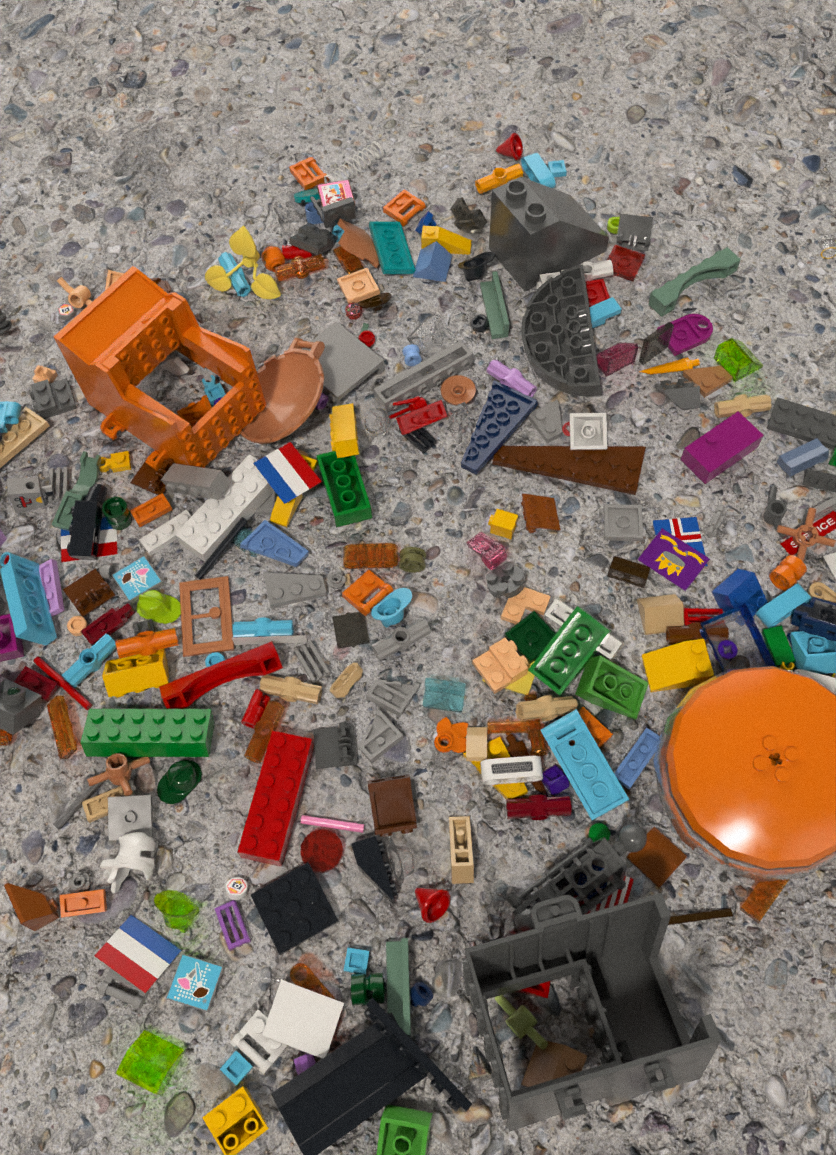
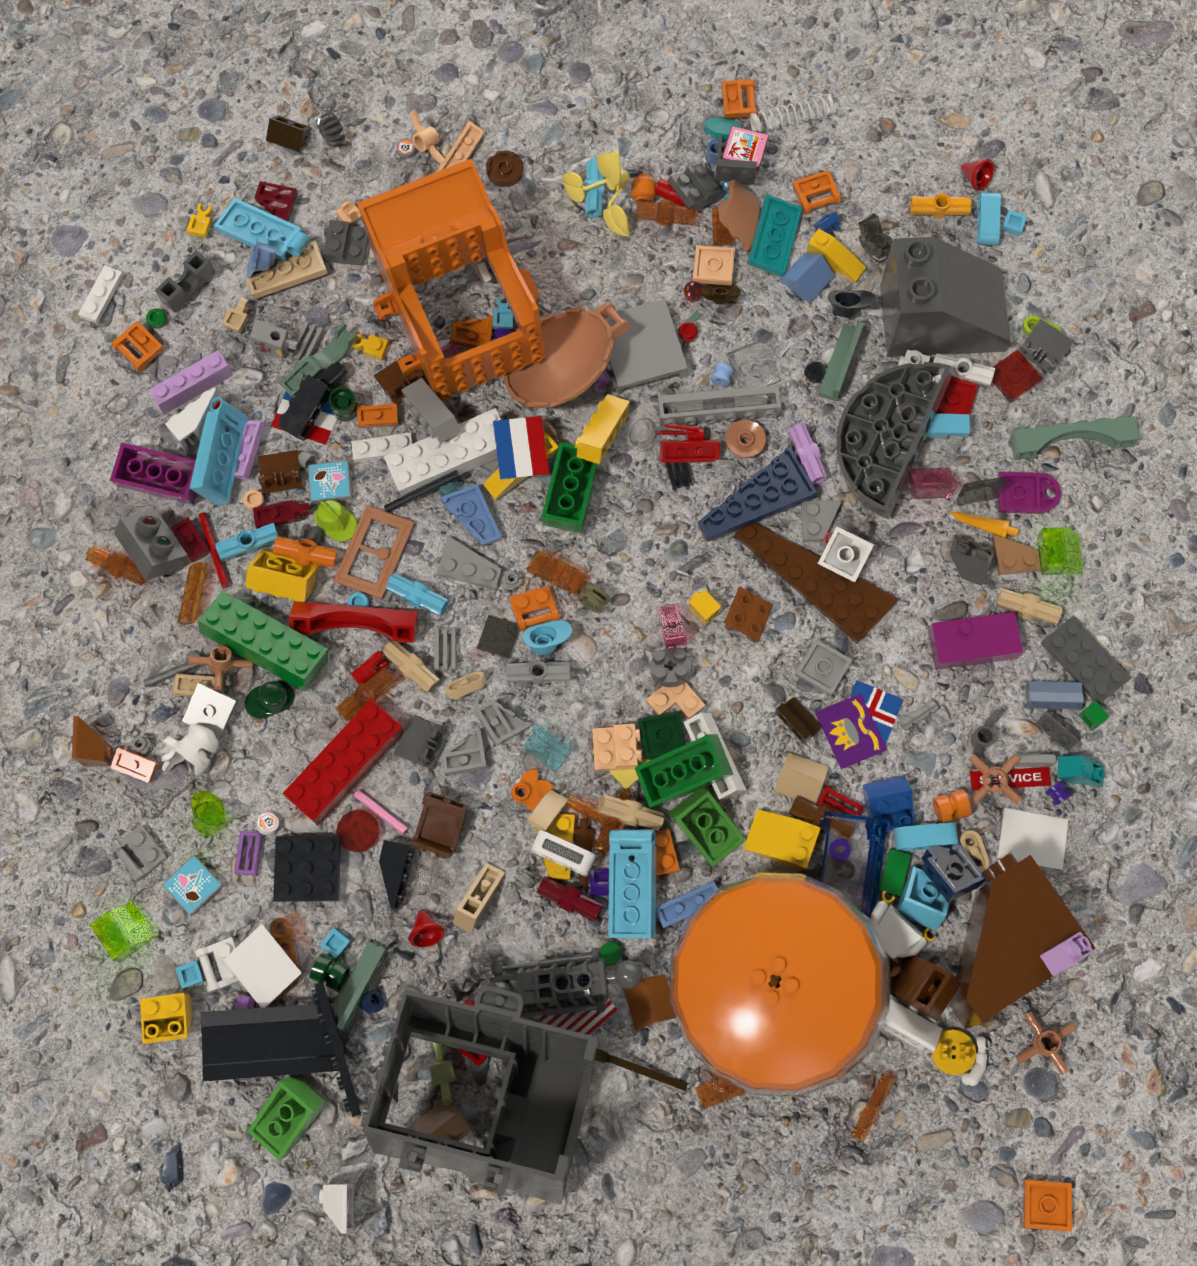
camera: 30 degrees right, 10 degrees up
(137, 953) = (157, 834): sticker -> none
(275, 639) = (417, 607): white sticker -> none

